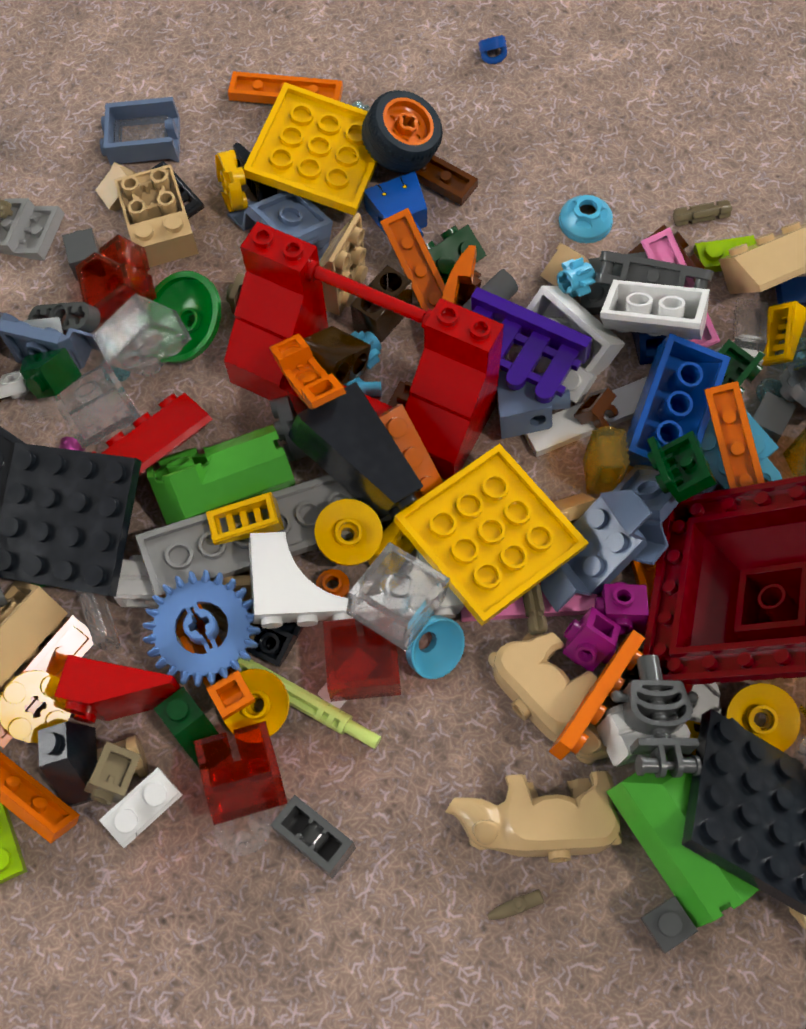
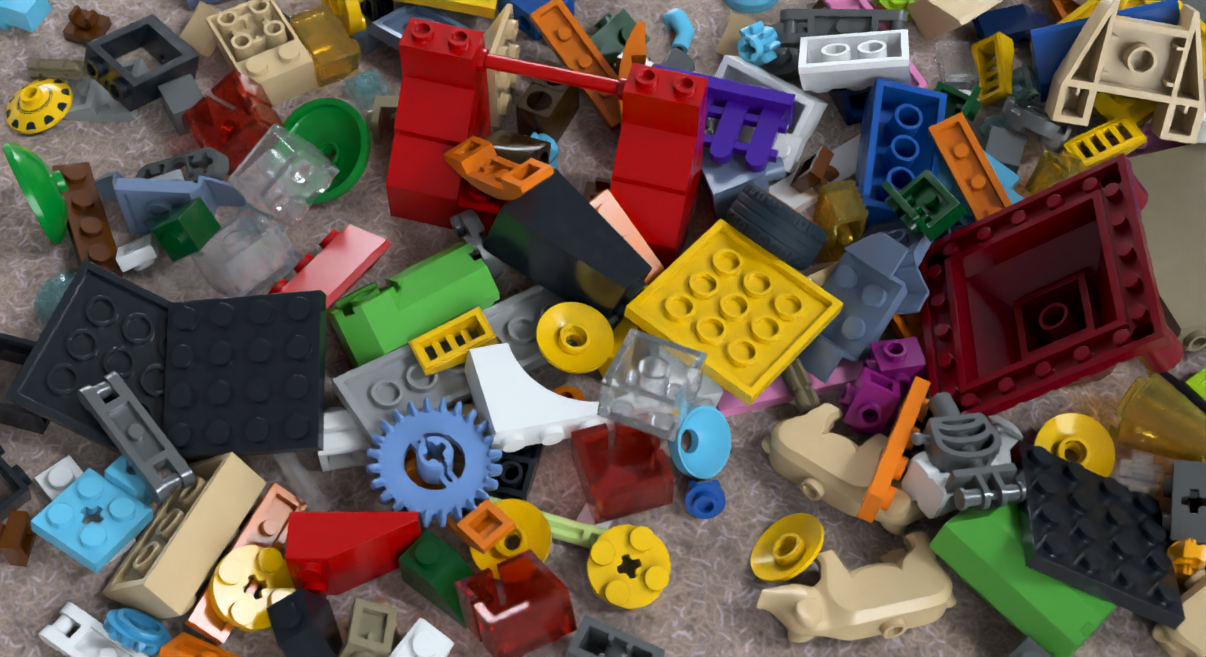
camera: 15 degrees left, 10 degrees down
(23, 169) = (85, 25): none -> reddish brown tile
(50, 236) = (159, 41): none -> black window
(209, 217) = (327, 43): none -> clear yellow brick
(233, 263) = (365, 87): none -> clear light blue plate
(335, 767) = (617, 588): none -> yellow plate
(428, 698) = (704, 499): none -> blue plate
(486, 760) = (787, 548): none -> yellow dish
(518, 249) = (684, 29): none -> medium azure arm
(548, 458) = (776, 226): none -> black wheel

